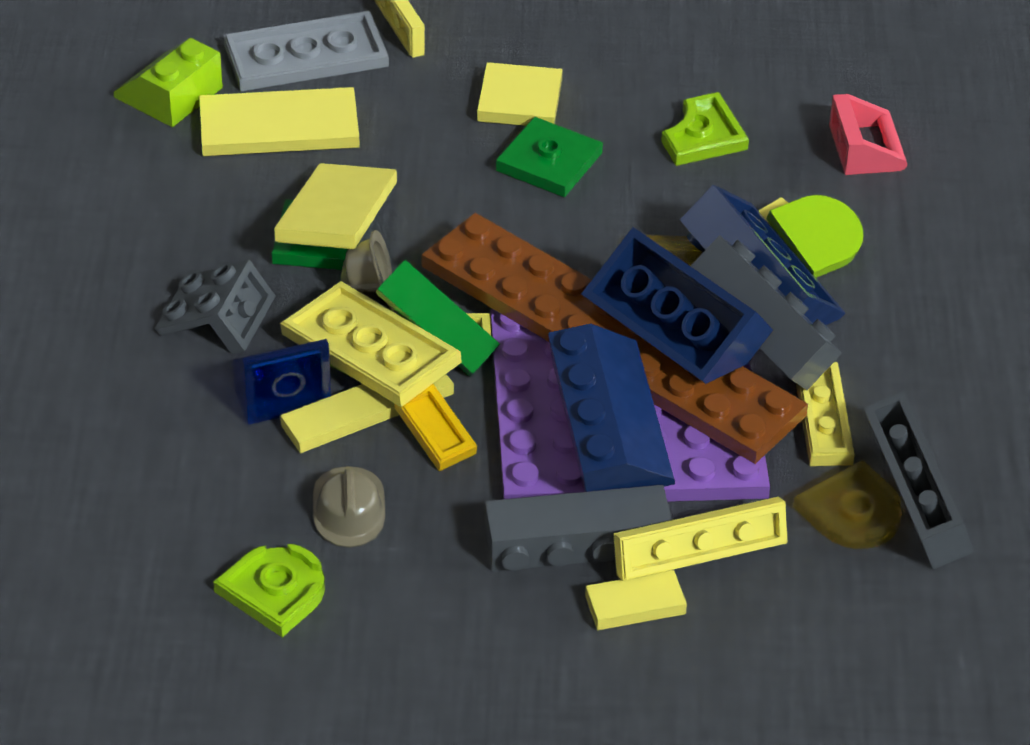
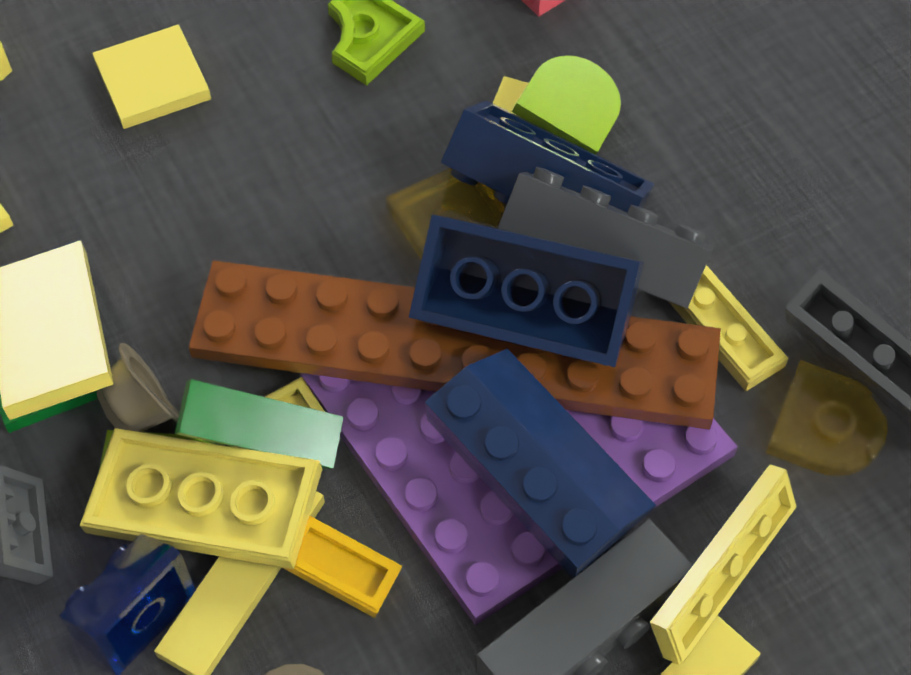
camera: 30 degrees left, 15 degrees up
(549, 156) = (232, 139): green plate -> none

